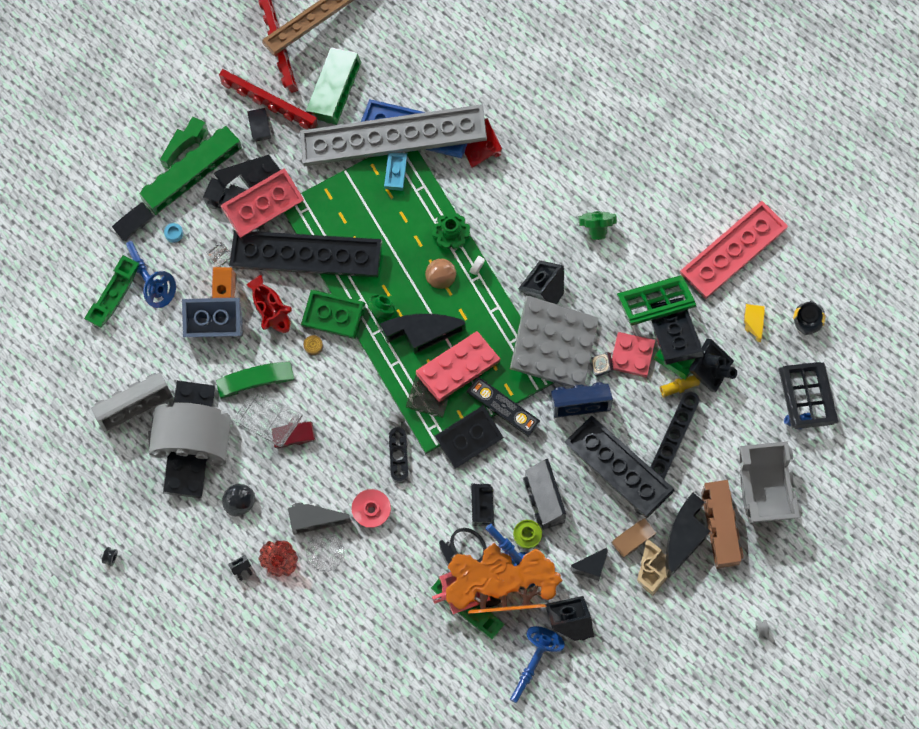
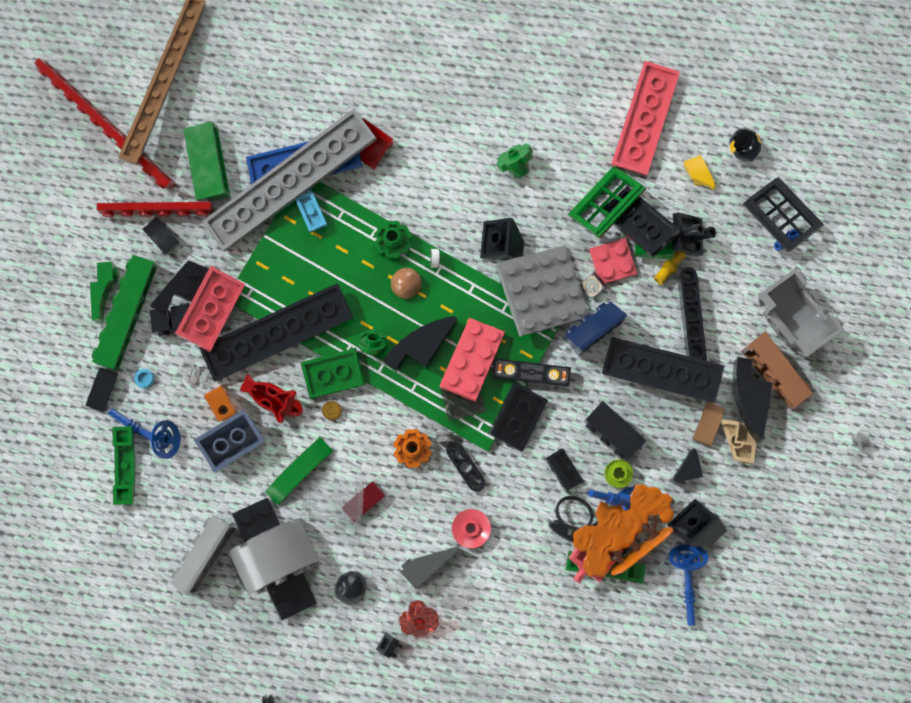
camera: 30 degrees left, 10 degrees up
(362, 422) = (411, 438): none -> orange plant

